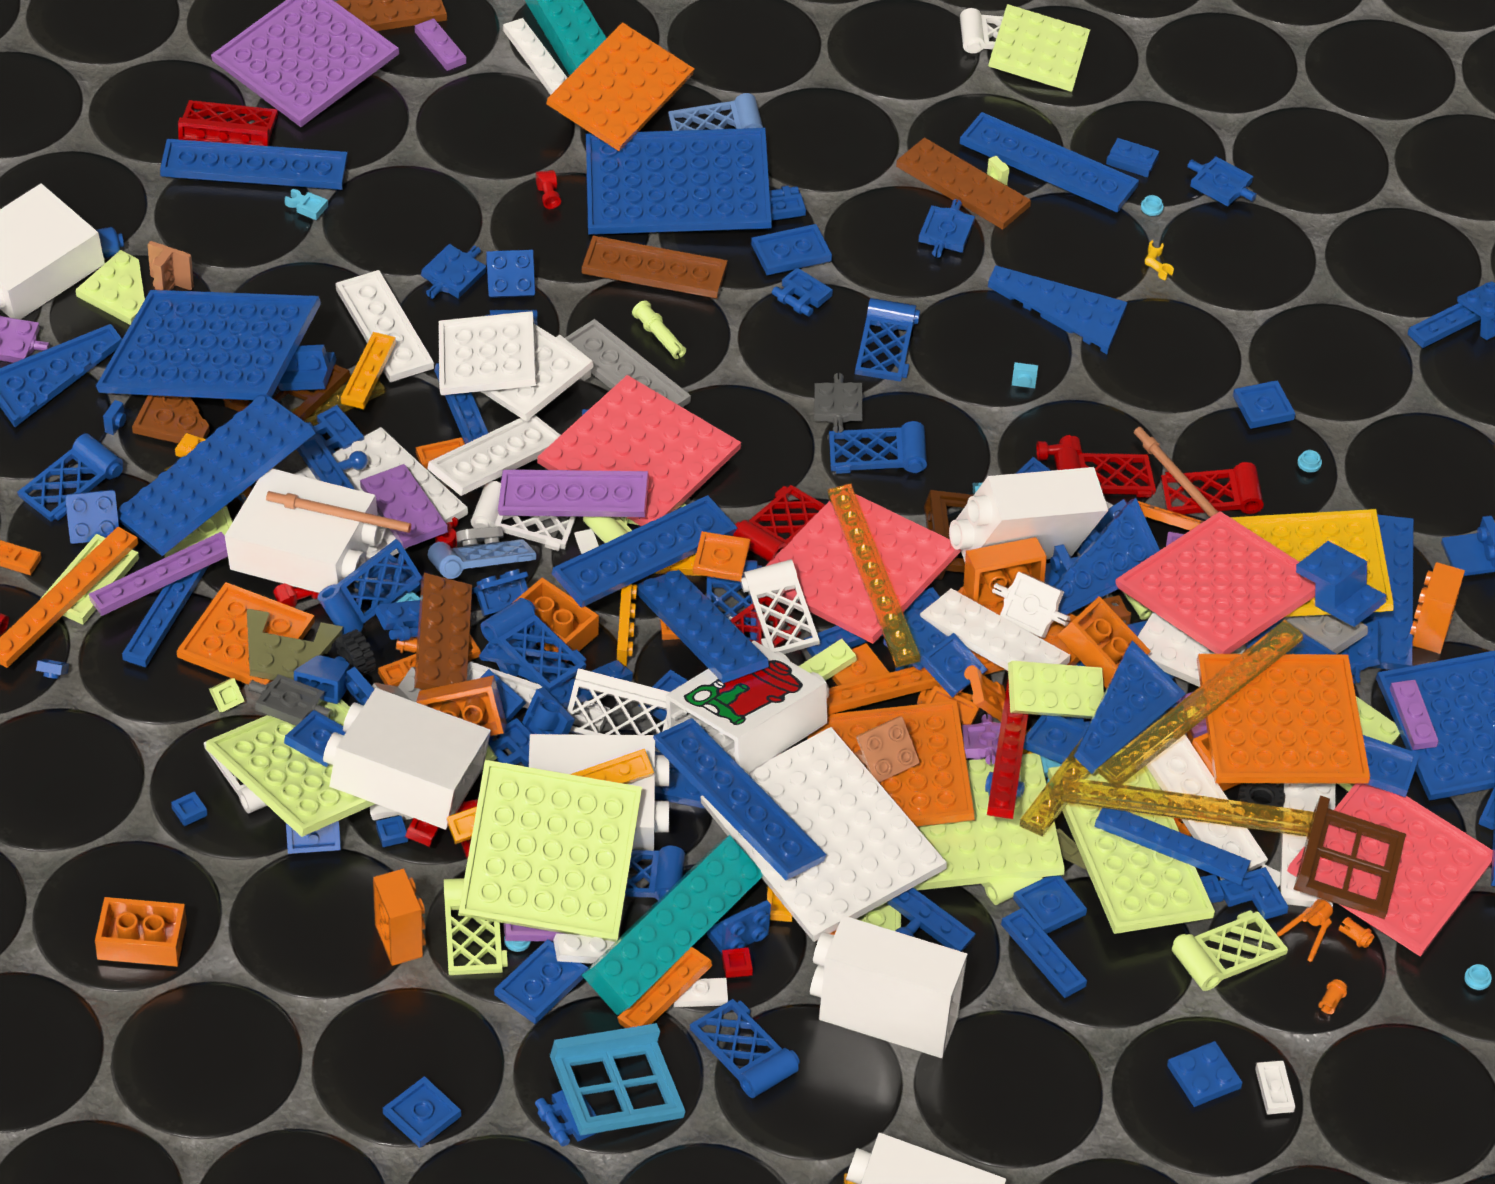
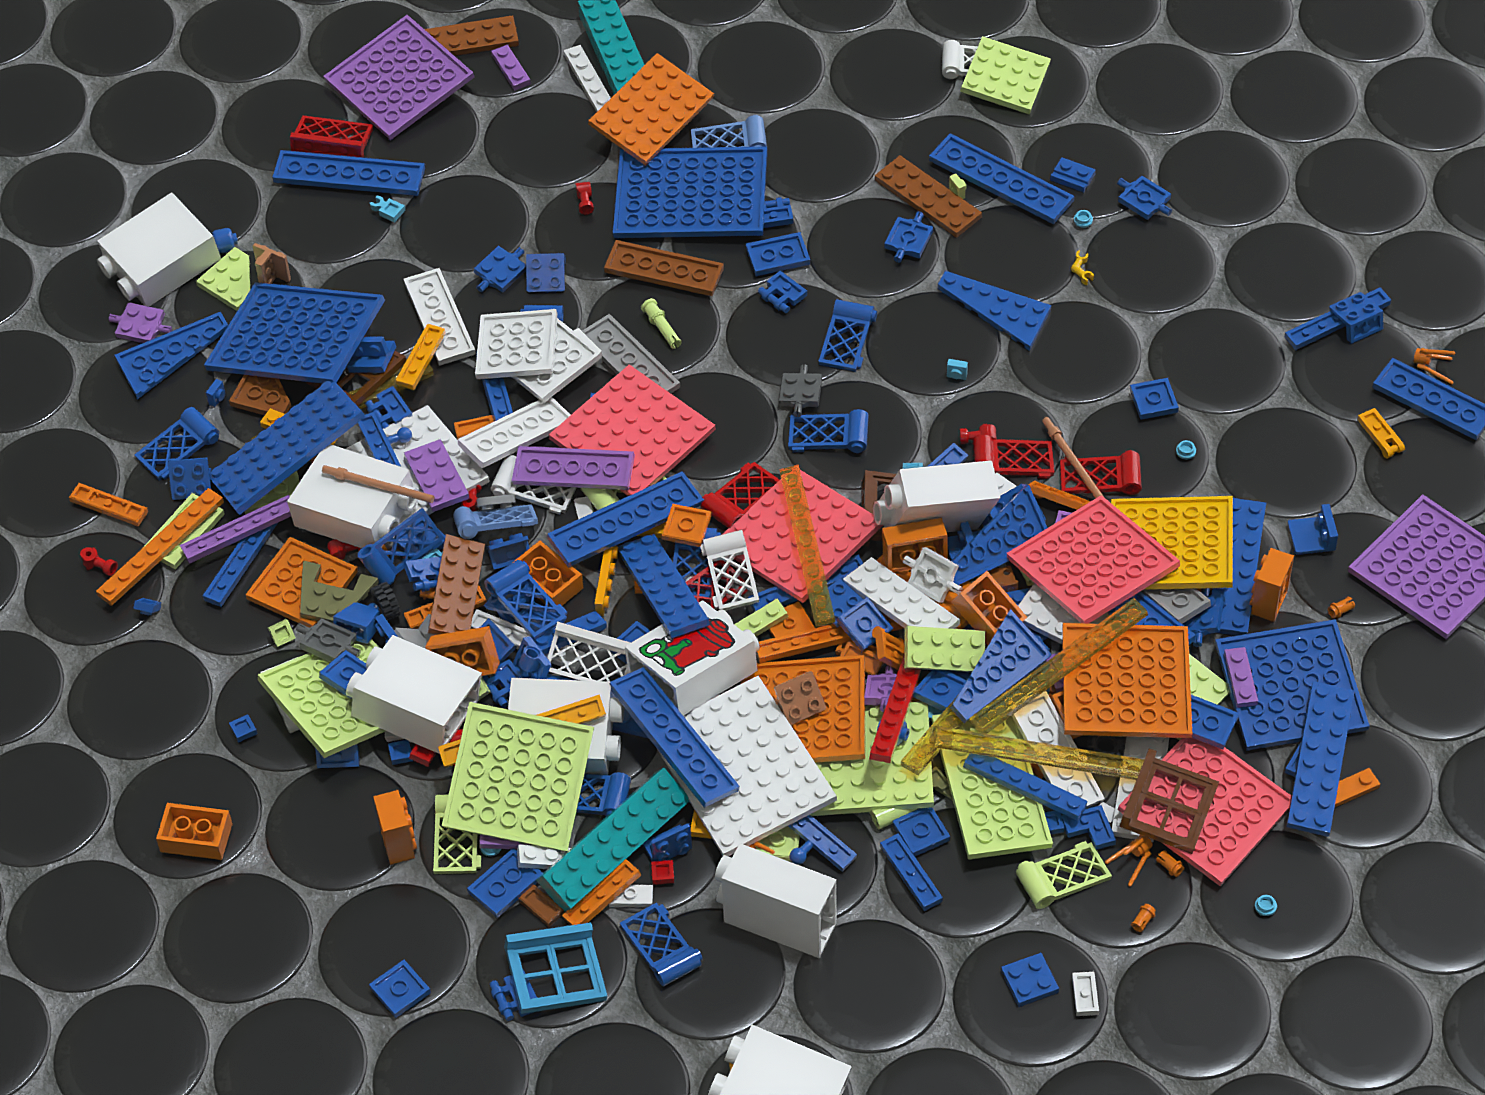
camera: 10 degrees right, 5 degrees up
(589, 1007) = (541, 905): none -> dark orange tile
(1341, 583) = (1189, 564): blue bracket -> none

